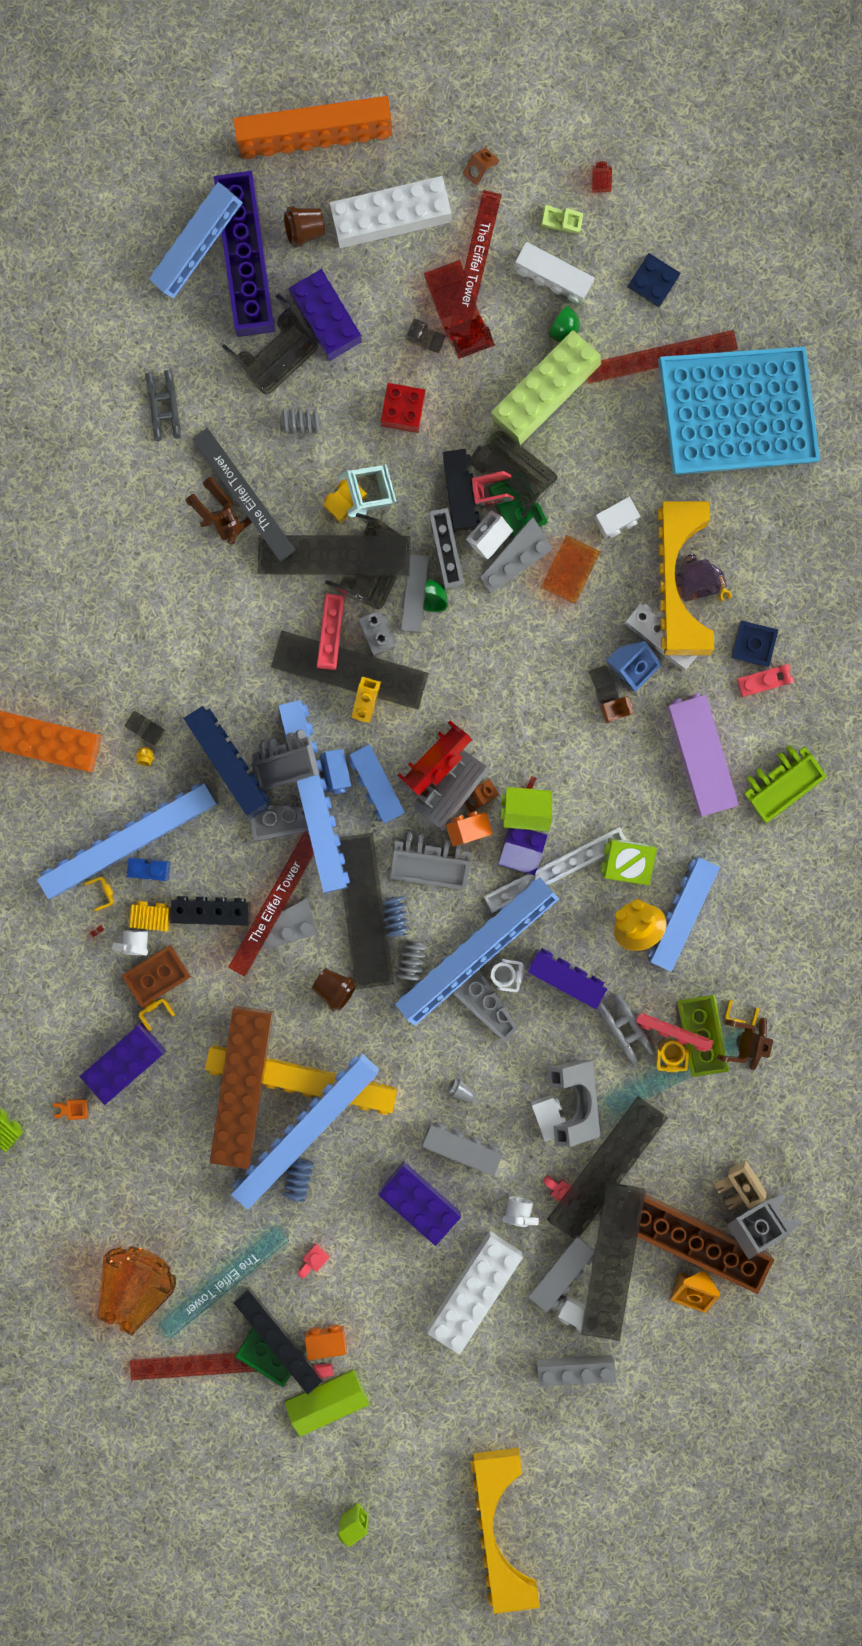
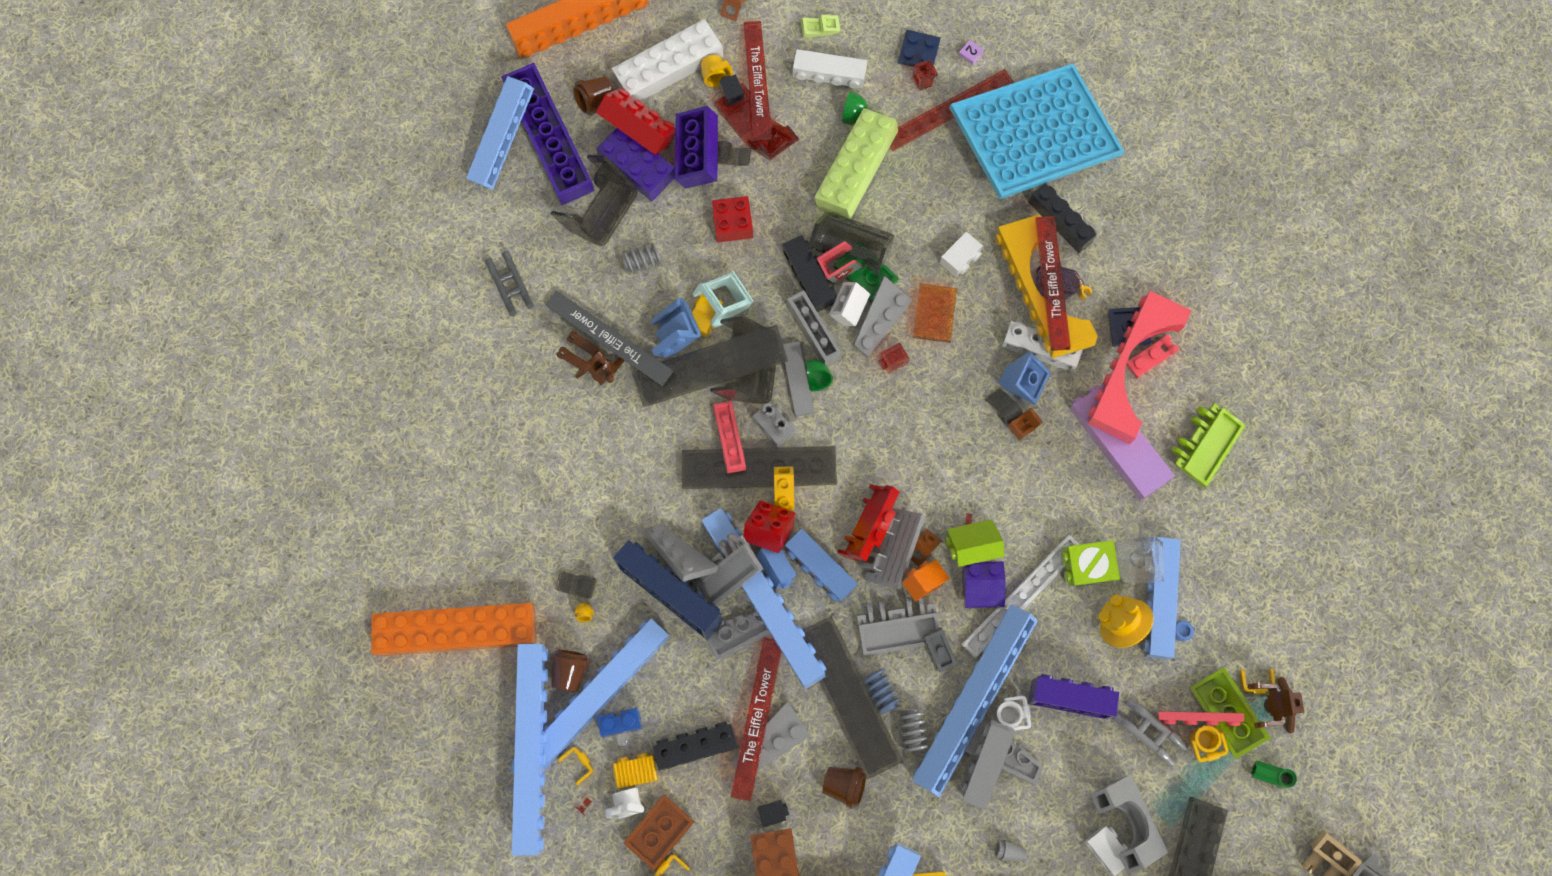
camera: 20 degrees left, 15 degrees down
(58, 868) = (529, 750): none -> light blue brick
(115, 805) = (568, 669): none -> reddish brown piece
(247, 733) = (678, 554): none -> light grey wing
(262, 992) = (773, 813): none -> black brick
(313, 507) = (676, 330): none -> medium blue piece
(337, 271) = (637, 120): none -> red brick
(339, 732) = (769, 526): none -> red brick
(390, 318) = (696, 147): none -> dark purple brick
(436, 239) = (714, 69): none -> yellow piece
(444, 266) = (731, 90): none -> black brick
(461, 896) = (940, 649): none -> dark grey plate
(468, 1012) = (988, 764): none -> light grey brick
(513, 603) = (893, 358): none -> clear red brick
(648, 311) = (924, 74): none -> clear red brick
(675, 874) = (1140, 559): none -> clear slope
(691, 949) = (1184, 631): none -> medium blue tile
(692, 580) = (1052, 284): none -> clear red tile
(703, 724) = (1113, 410): none -> coral arch
(706, 299) = (971, 52): none -> lavender tile
(719, 1100) = (1272, 774): none -> green piece
(730, 511) = (1068, 223): none -> black brick

